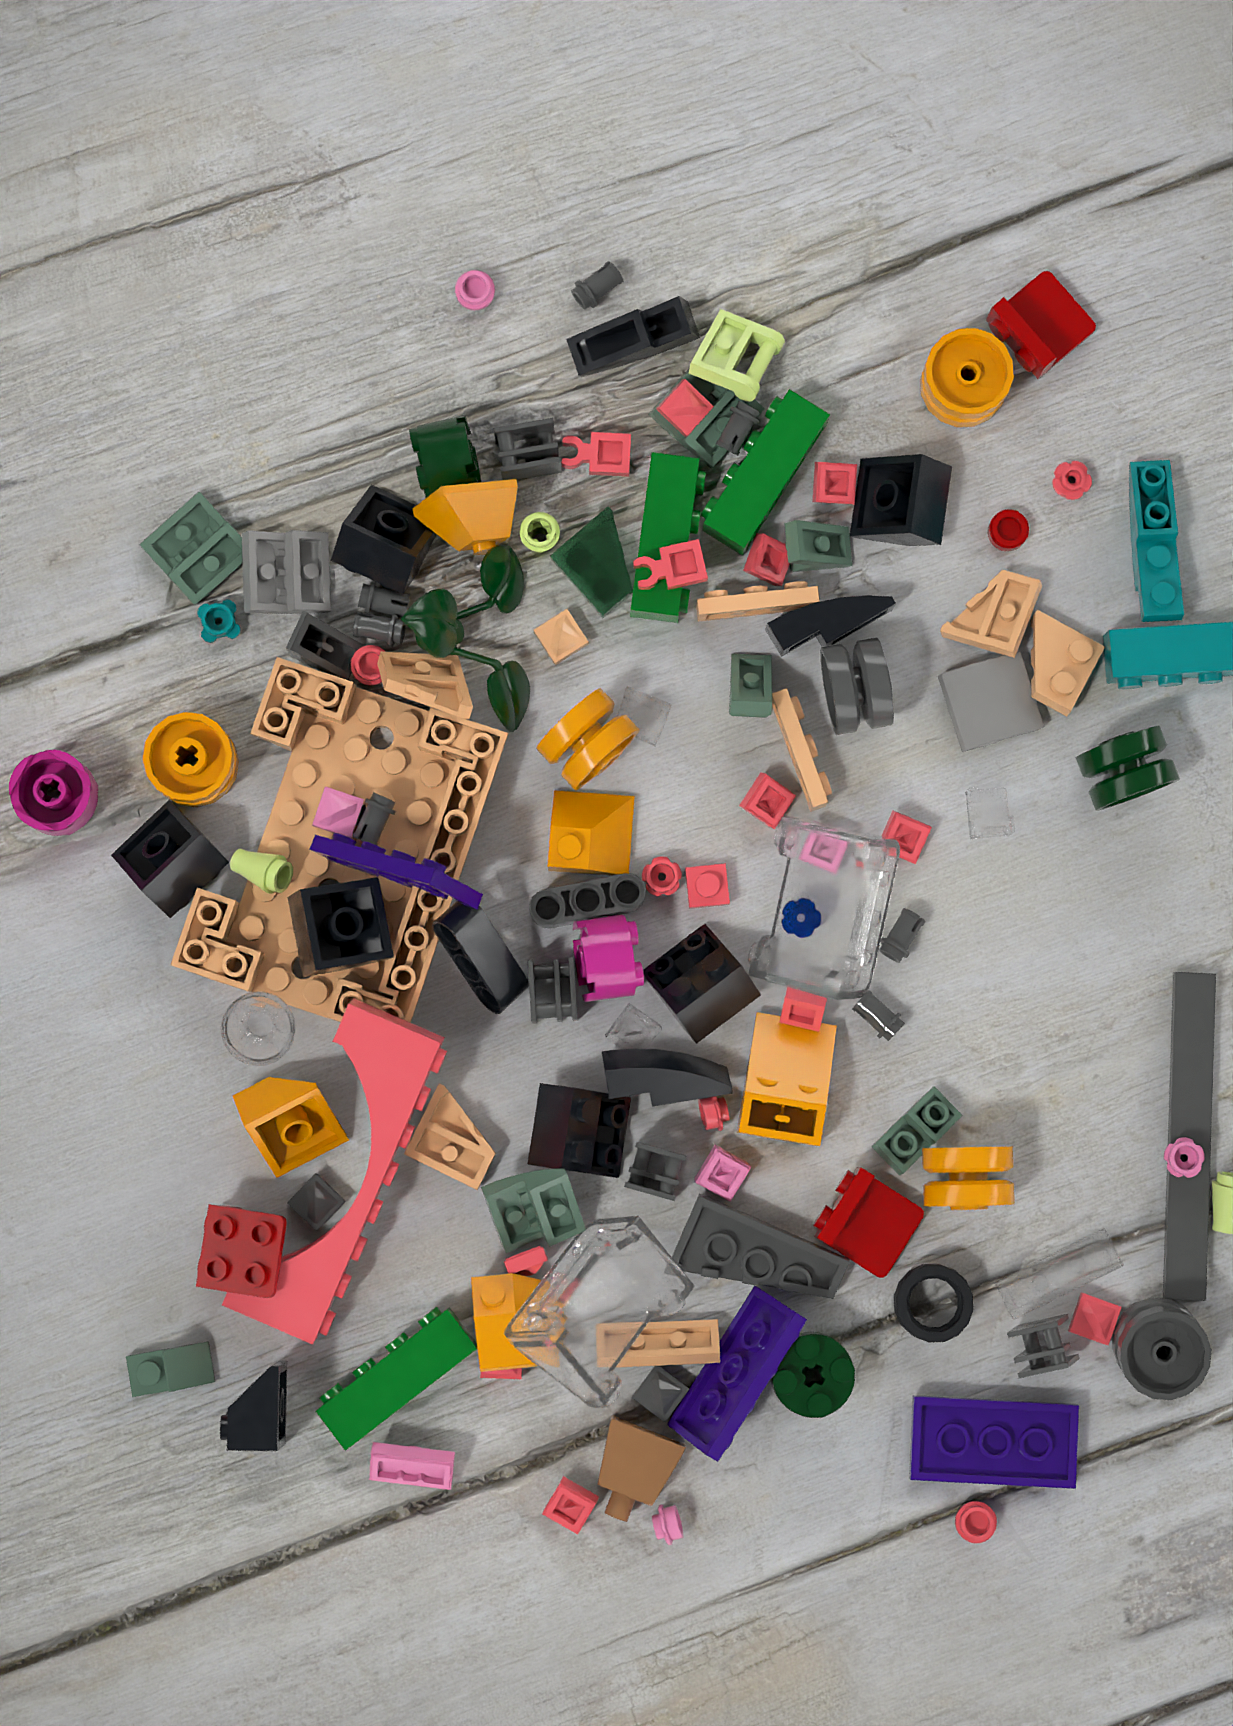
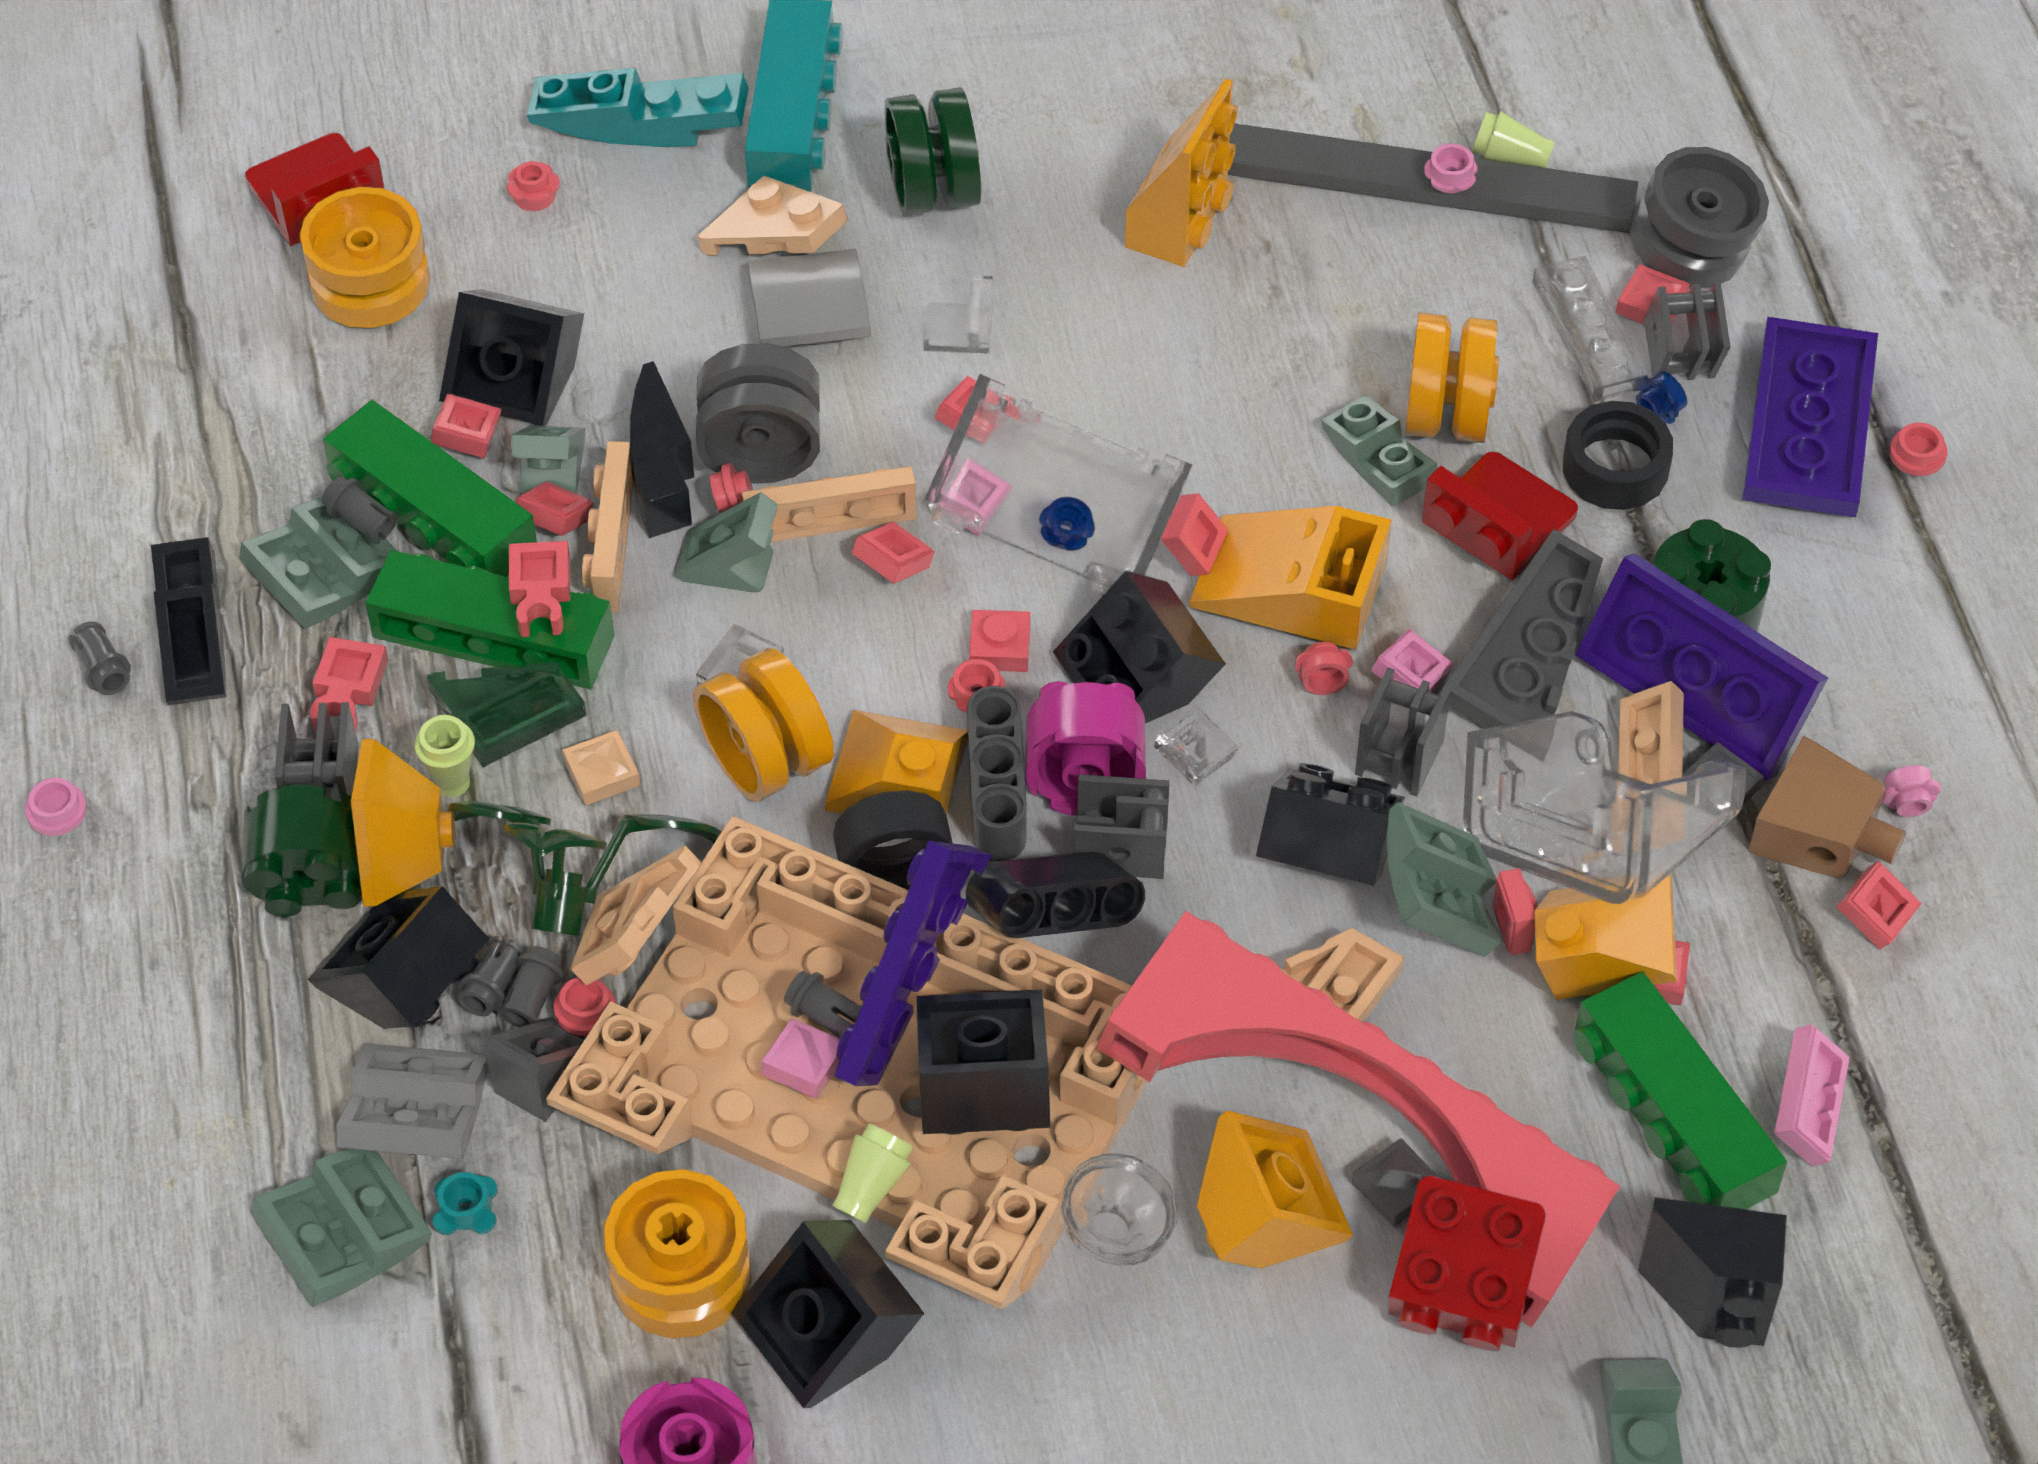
camera: 80 degrees left, 30 degrees down
(510, 841) = (884, 819): none -> black tyre
(664, 1075) = (1265, 714): black slope -> none
(684, 407) = (310, 570): coral tile -> none
(724, 349) = (246, 514): yellowish green plate -> none
(802, 679) = (728, 486): none -> coral plate
(878, 1016) = (1226, 461): dark grey pin -> none
(901, 935) = (1110, 426): dark grey pin -> none
(994, 1330) = (1662, 395): none -> clear blue plate
(997, 615) = (694, 275): light nougat wing -> none
(1008, 530) = (581, 259): red tile -> none
(1128, 957) = (1186, 184): none -> light orange slope

